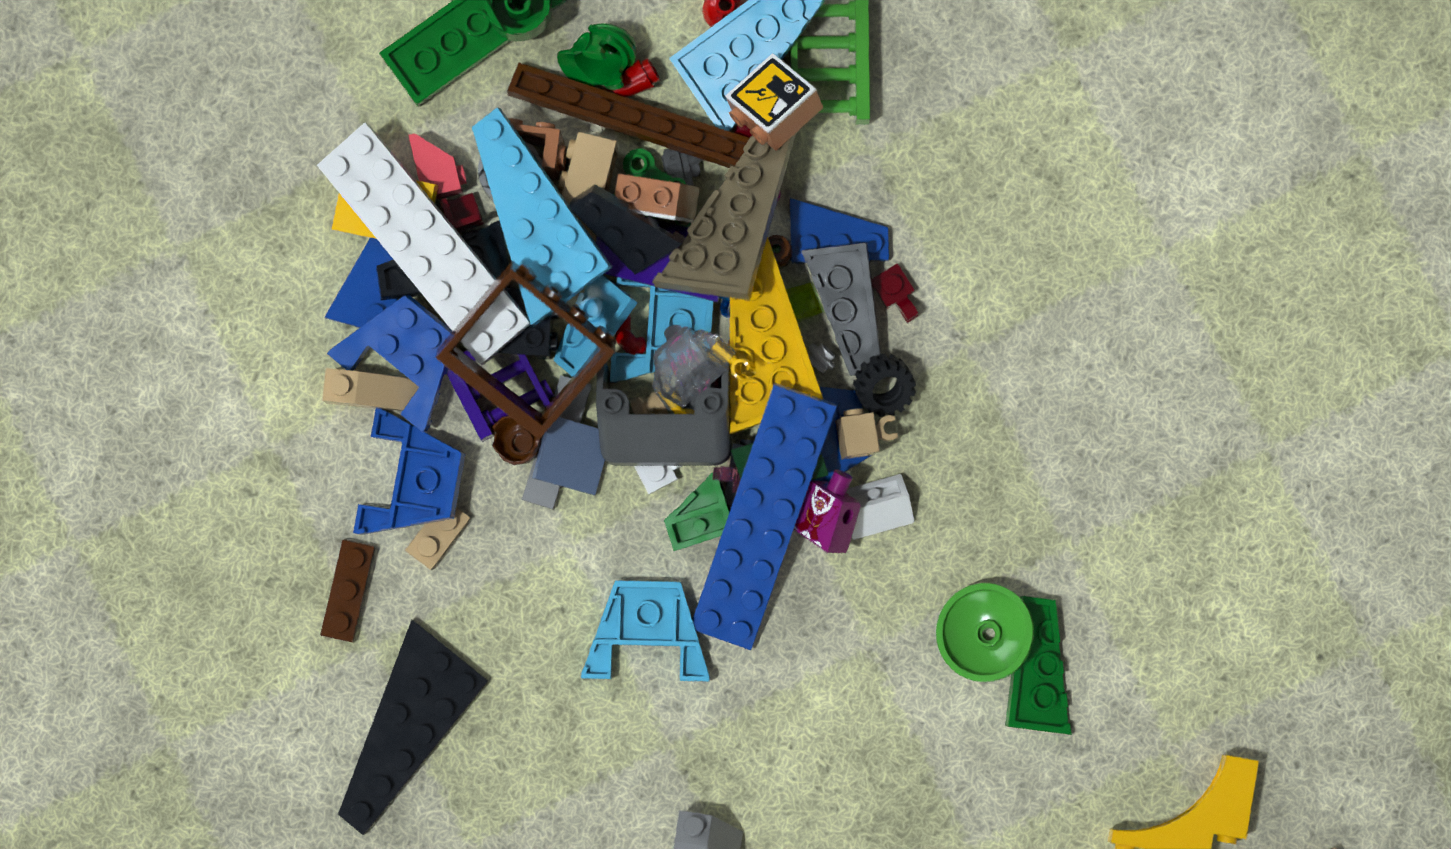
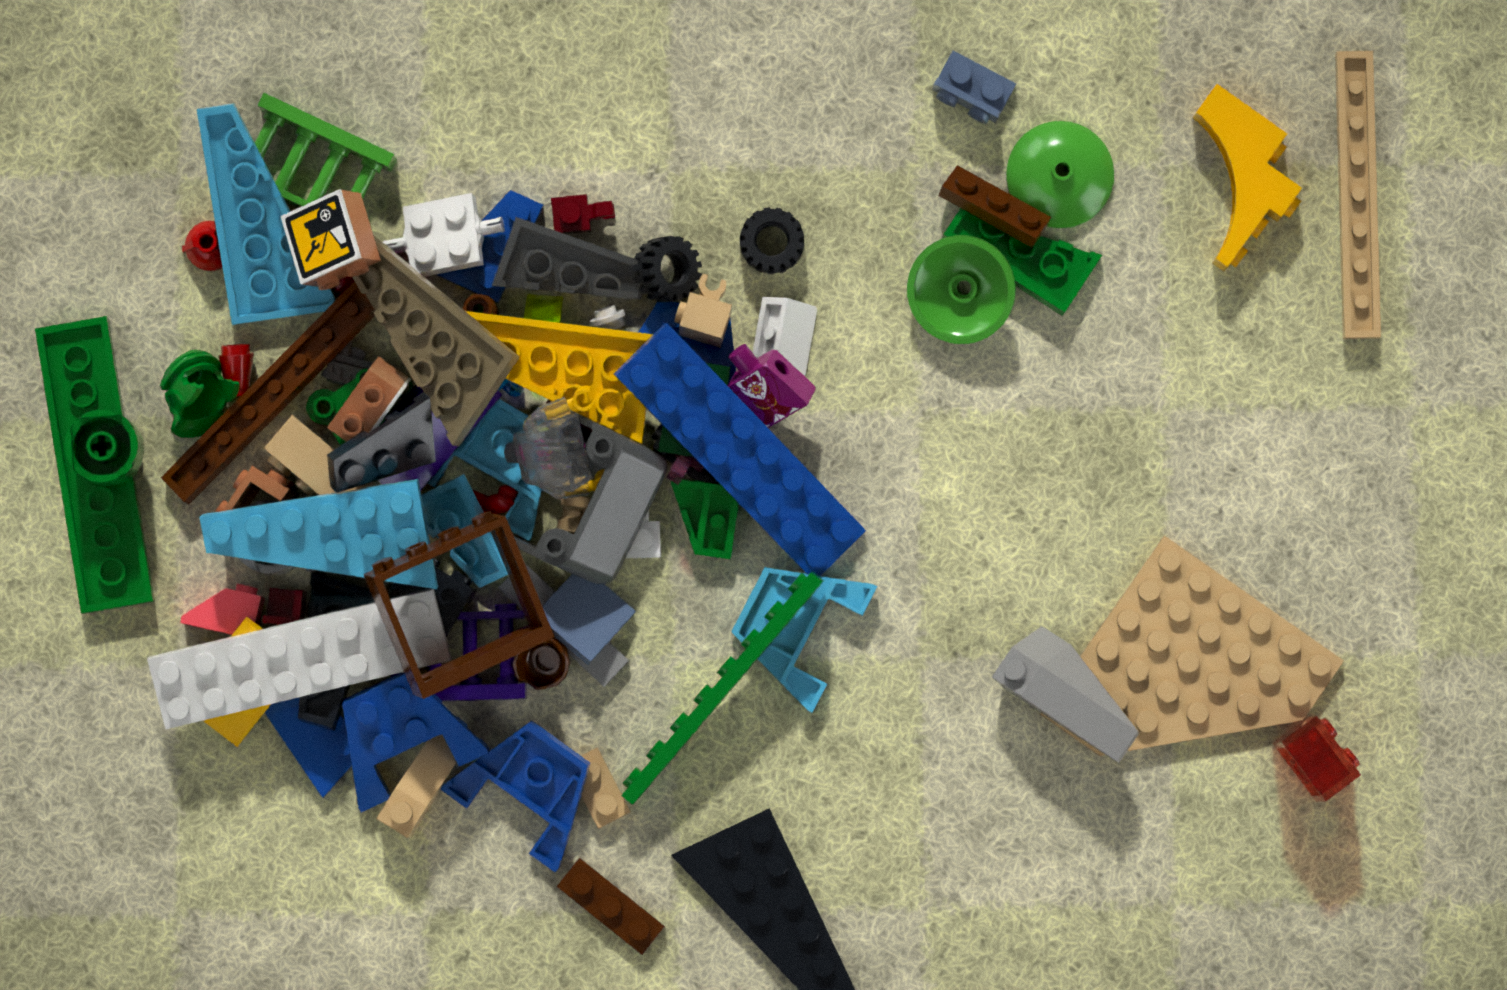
camera: 65 degrees left, 0 degrees up
(580, 597) = (709, 697): none -> green plate
(824, 192) = (444, 235): none -> white plate
(950, 438) = (773, 218): none -> black tyre
(1067, 627) = (994, 206): none -> reddish brown plate
(1097, 670) = (1069, 198): none -> bright green dish
(1158, 562) = (973, 88): none -> sand blue bracket

